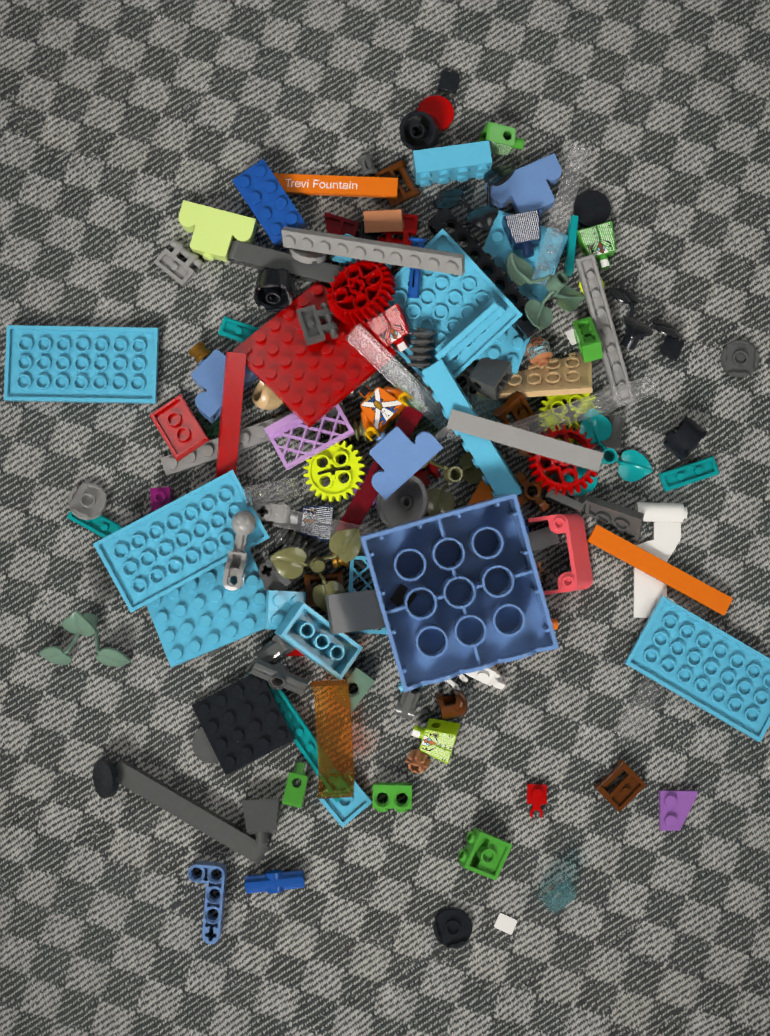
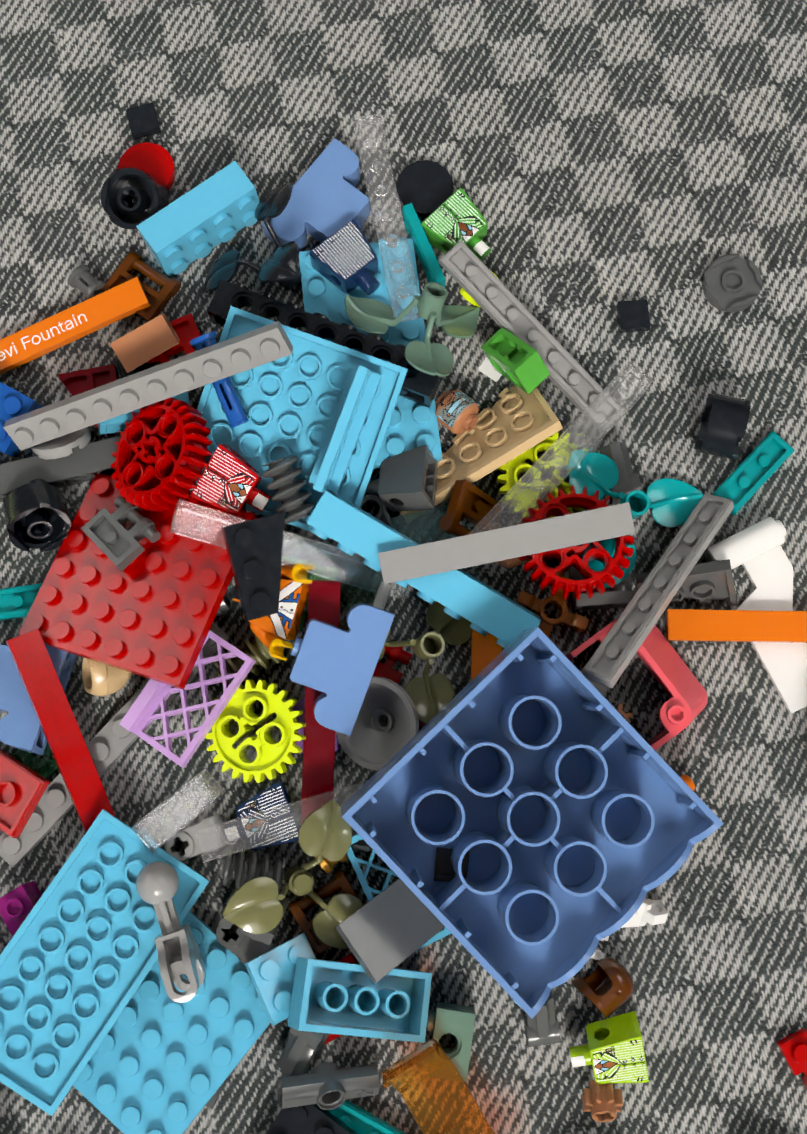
camera: 30 degrees left, 5 degrees down
(383, 378) = (256, 563): none -> black wing
(501, 138) = (253, 154): bright green torso -> none
(596, 509) = (657, 591): none -> light grey tile
(635, 329) = (577, 308): black plant -> none

